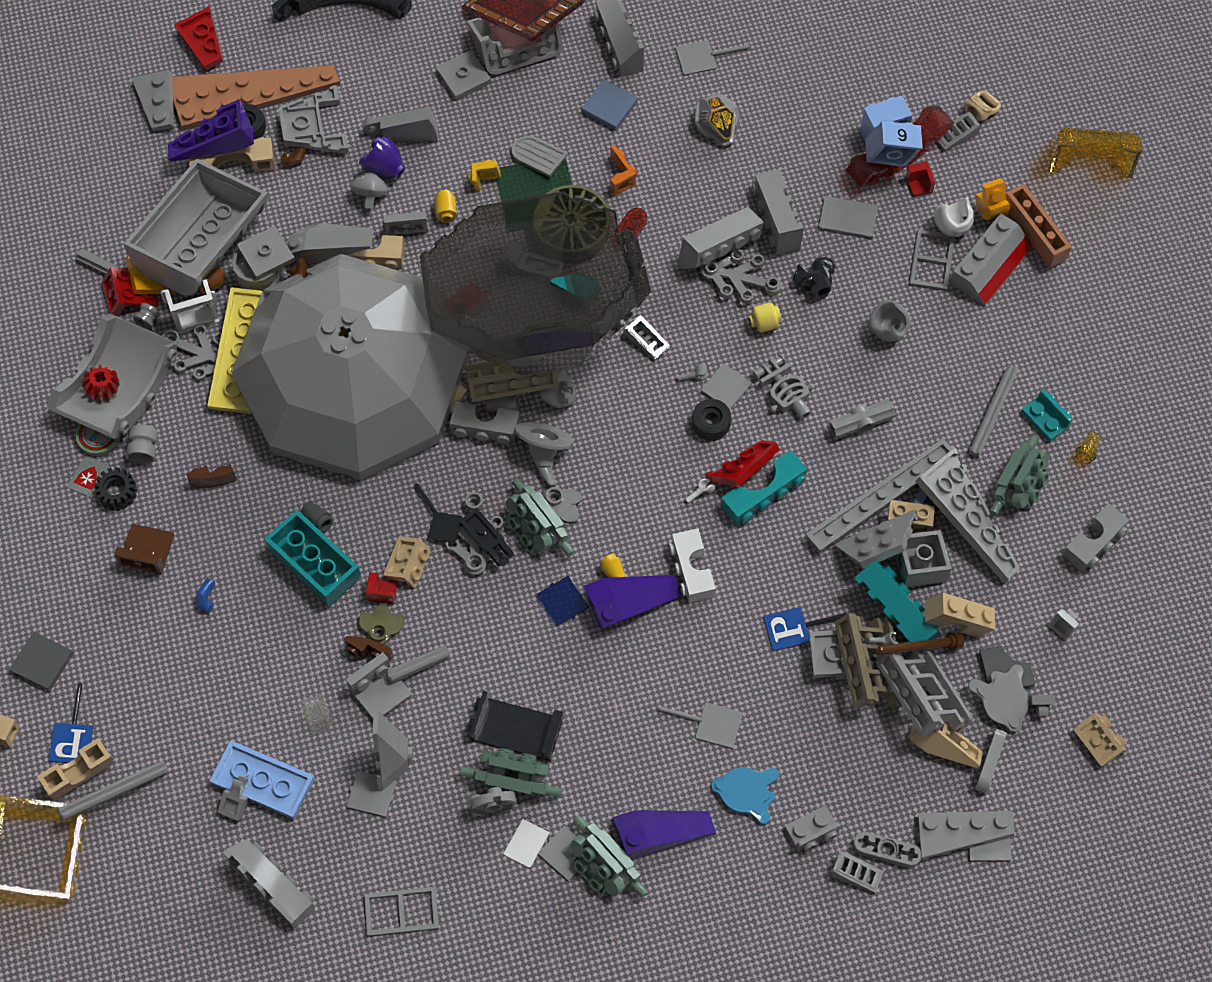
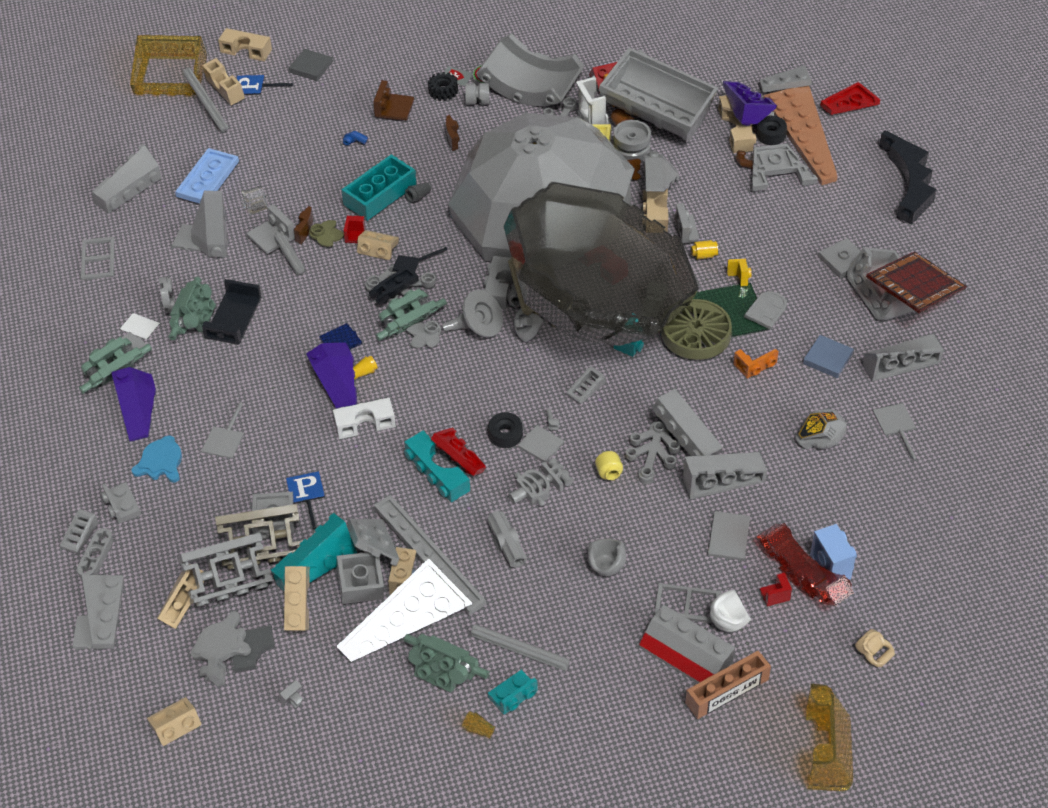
camera: 90 degrees right, 15 degrees down
(100, 382) = (526, 67): red gear -> none
(233, 801) = (191, 160): light grey plate -> none
(266, 252) = (638, 135): light grey plate -> none
(369, 186) = (715, 200): light grey piece -> none
(383, 159) = (744, 205): dark purple piece -> none
(407, 126) = (779, 221): light grey piece -> none
(628, 221) = (699, 371): clear red plate -> none
(702, 488) = (439, 425): white hand -> none
(817, 281) = (652, 506): black animal -> none
(884, 640) = (277, 538): light grey hand -> none
(893, 143) = (794, 539): light blue brick -> none
(952, 641) = (279, 600): reddish brown piece -> none
(968, 125) = (842, 638): light grey slope -> none
(991, 760) = (163, 630): light grey beam -> none
(992, 200) = (749, 639): light orange brick -> none
(1084, 551) = (390, 737): light grey arch -> none

